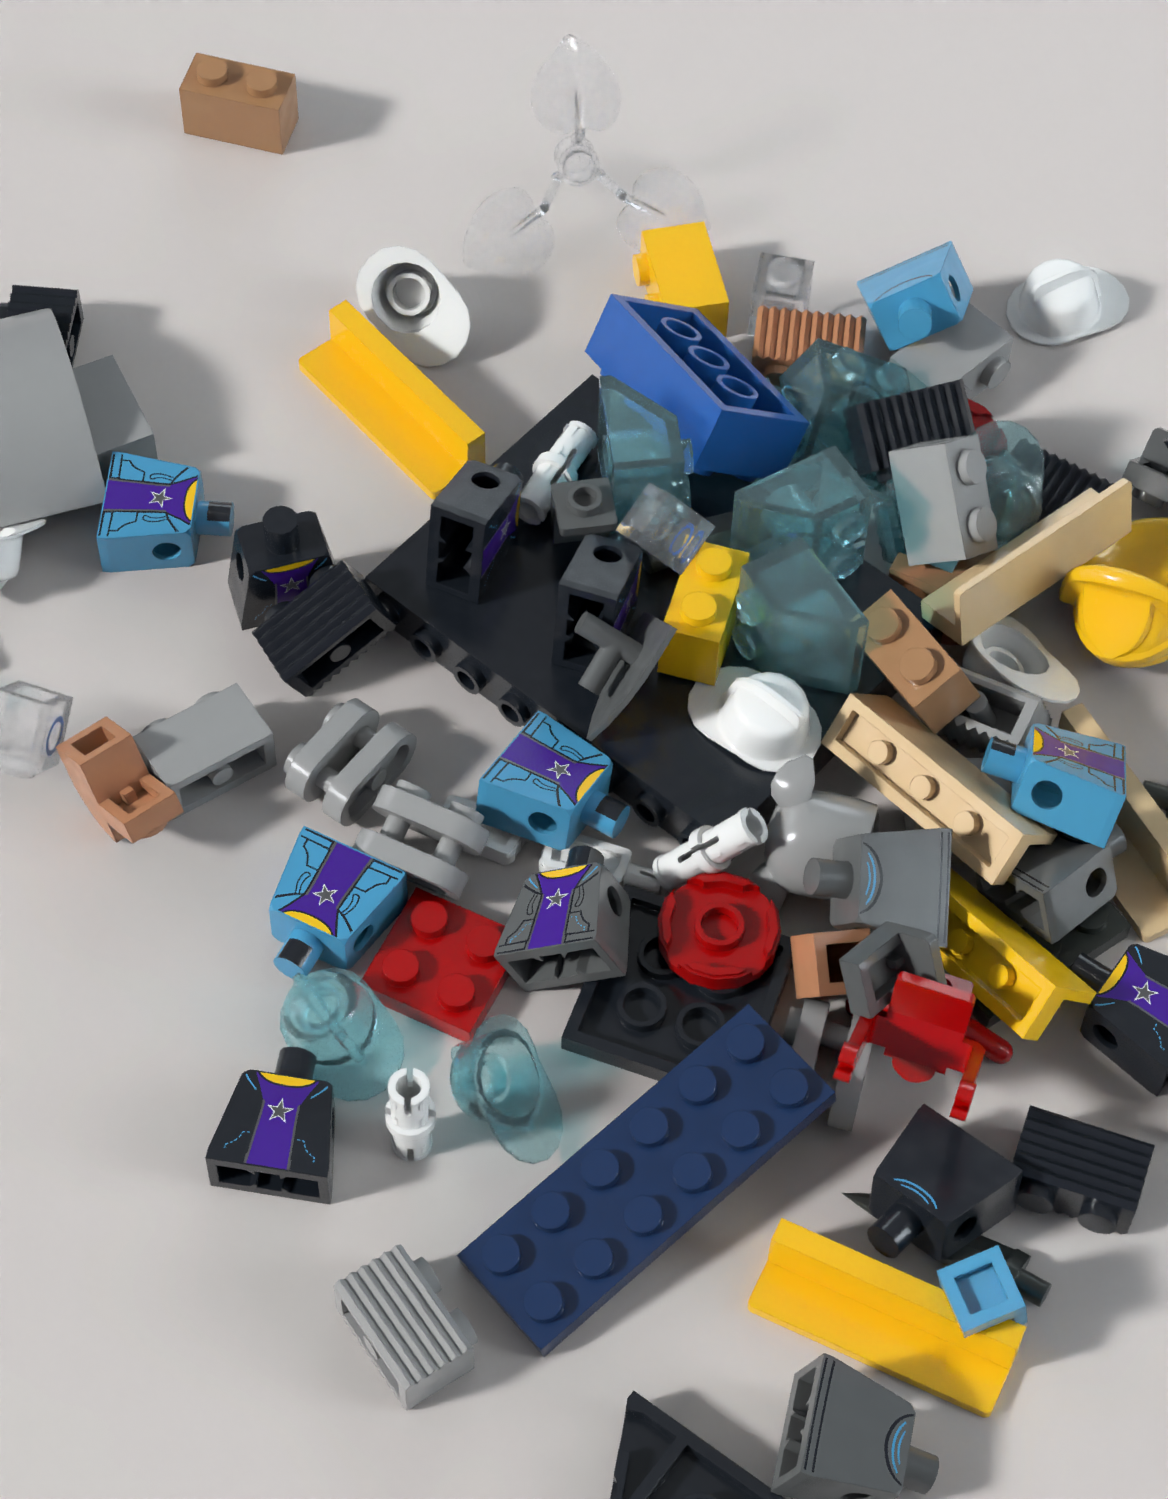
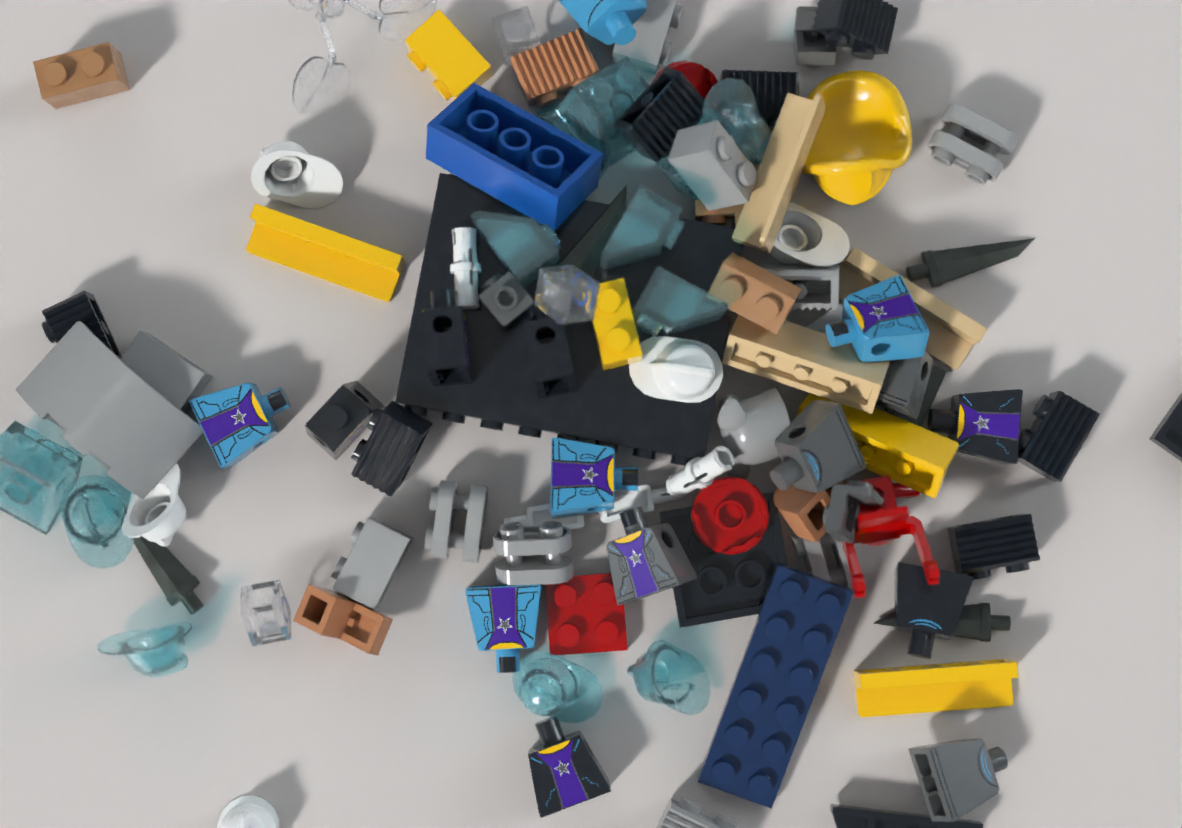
camera: 30 degrees left, 30 degrees up
(410, 1114) = (629, 738): white pin -> none
(620, 663) = (593, 392): dark grey shield -> none
(982, 1291) = (986, 658): dark azure panel -> none

